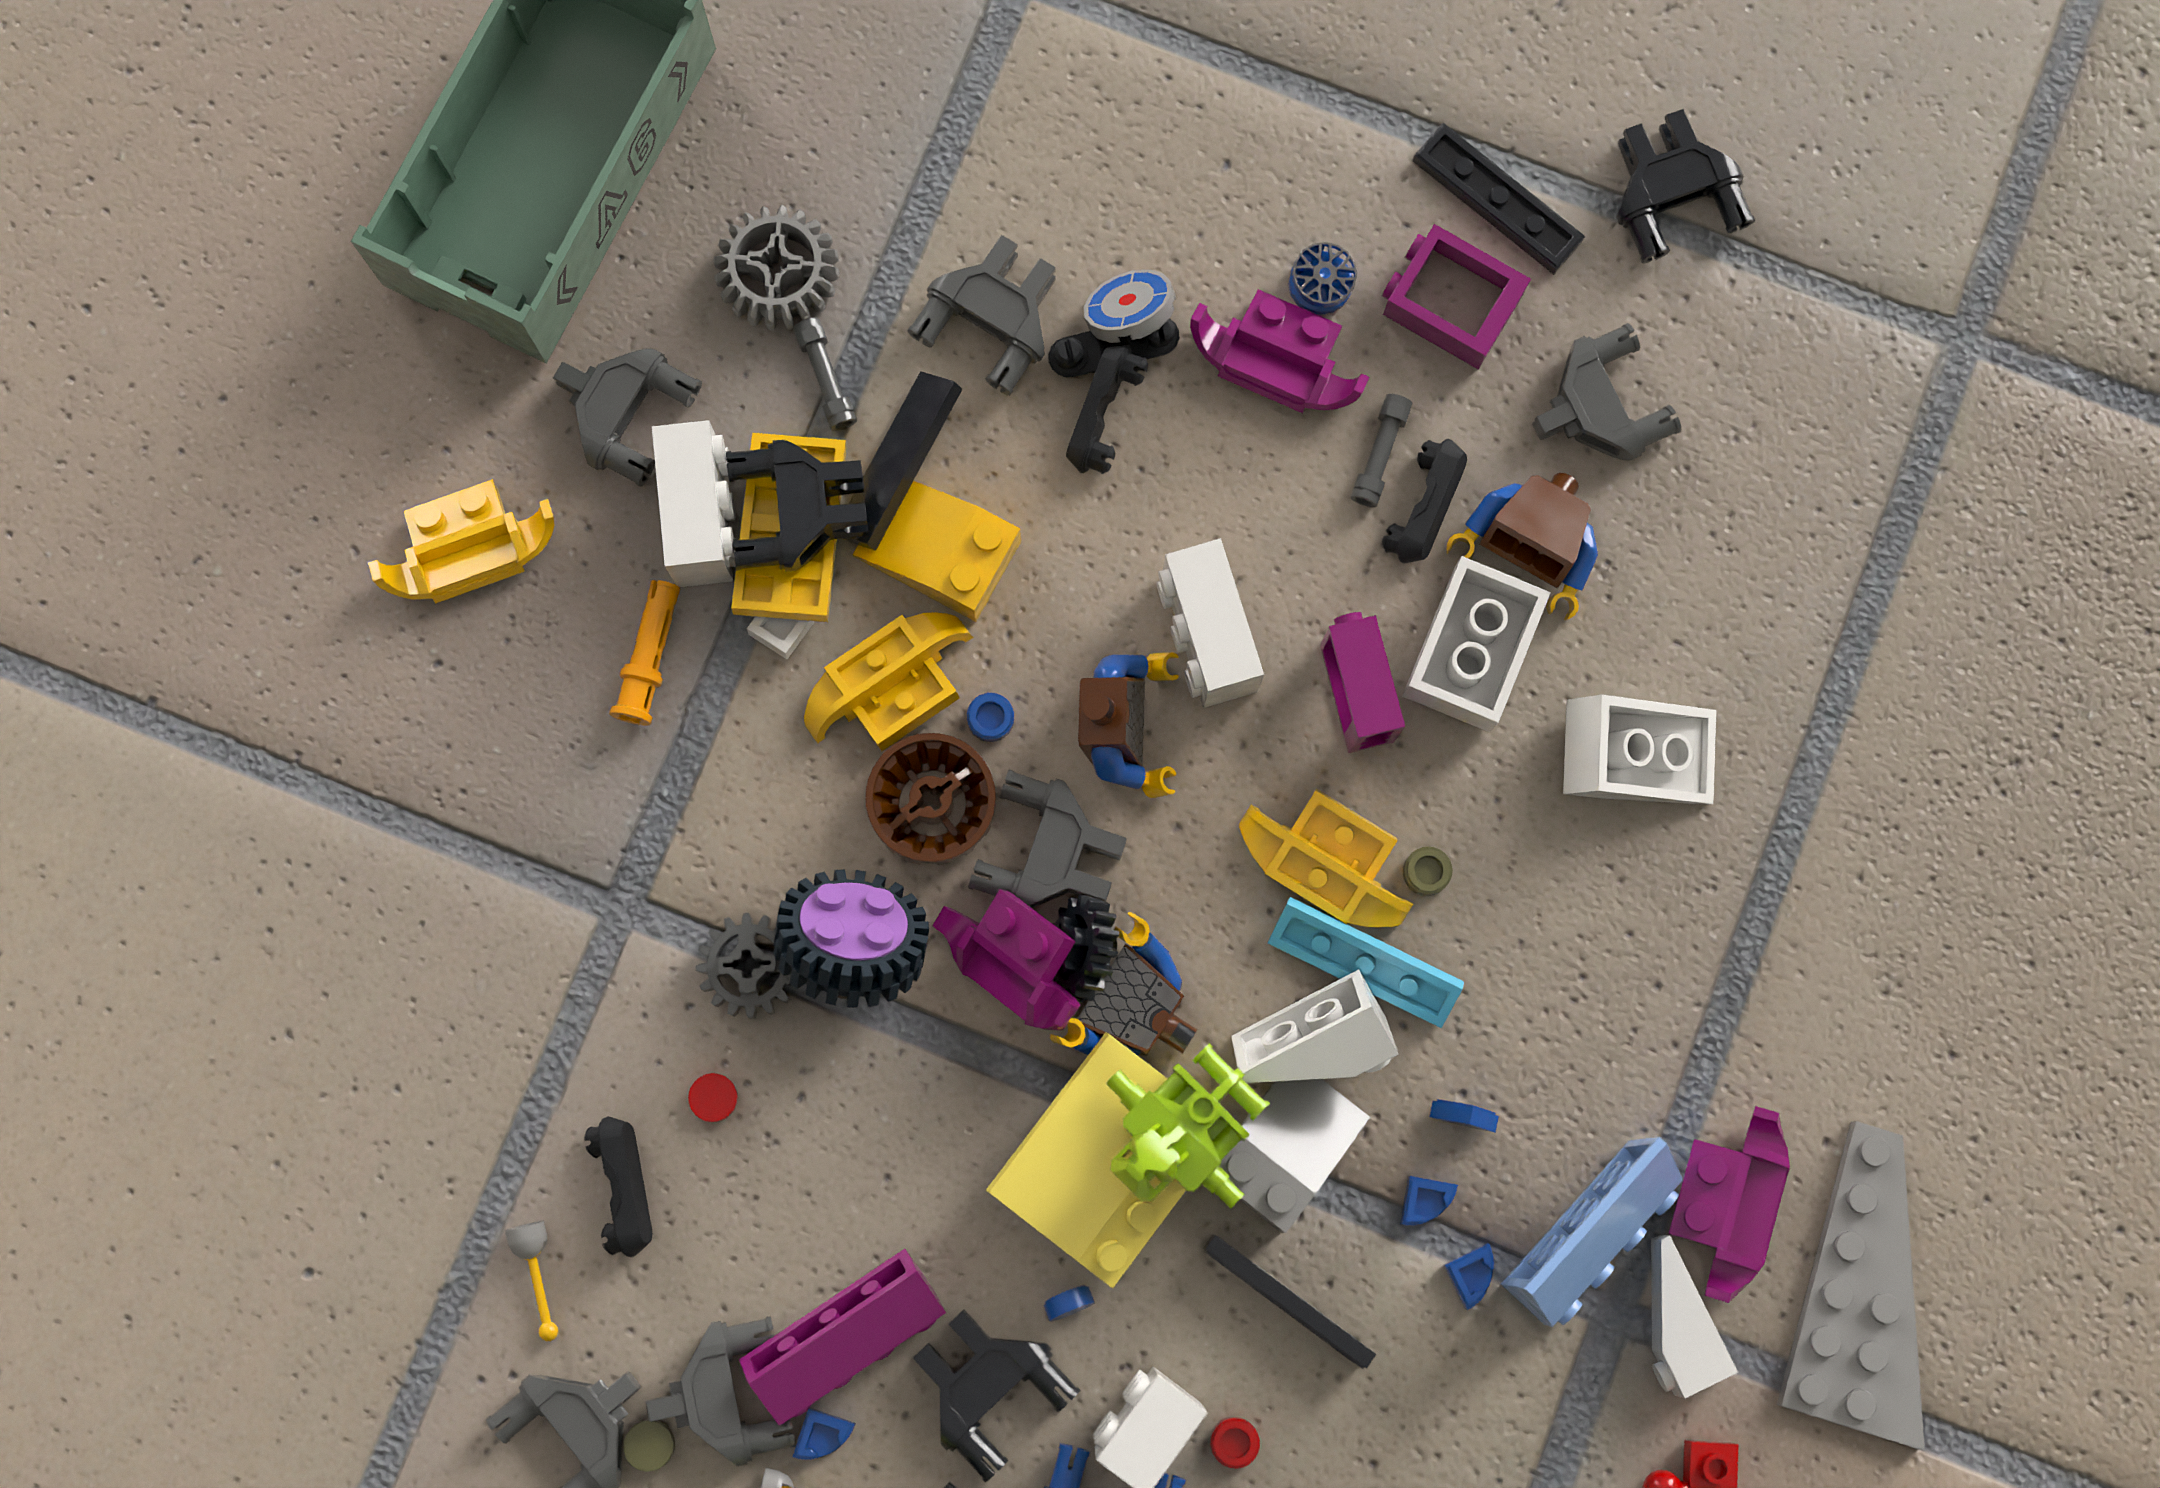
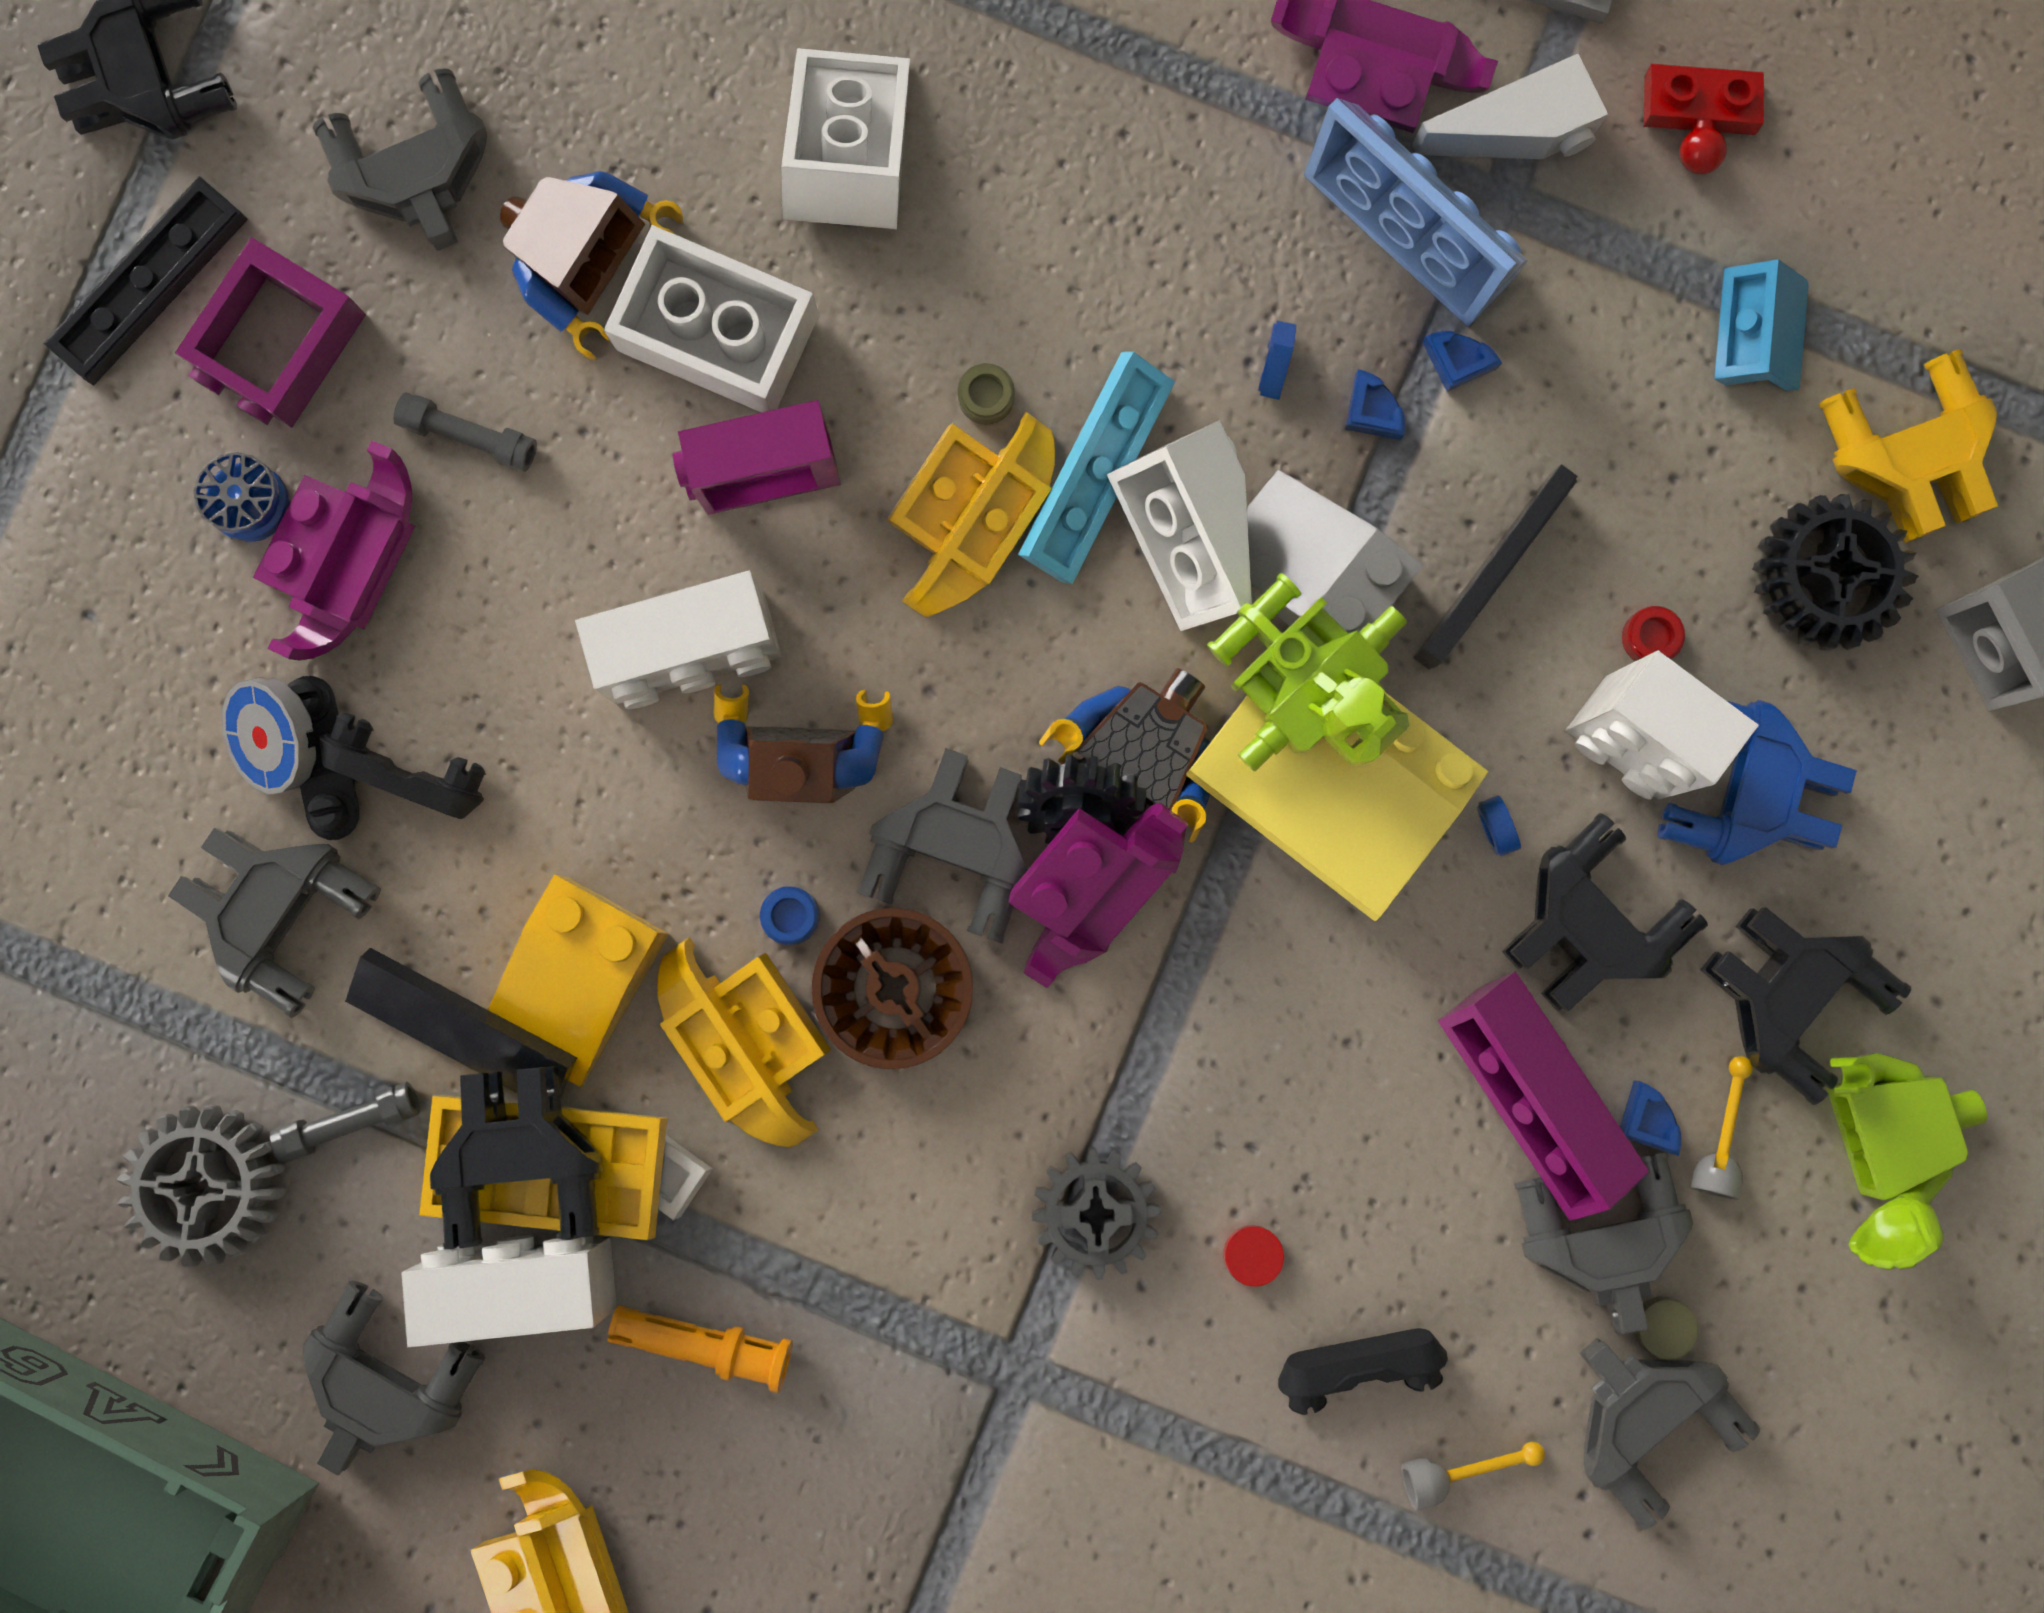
camera: 90 degrees left, 5 degrees up
(850, 938) = (1069, 1086): wheel -> none
(1445, 466) = (487, 352): black piece -> none

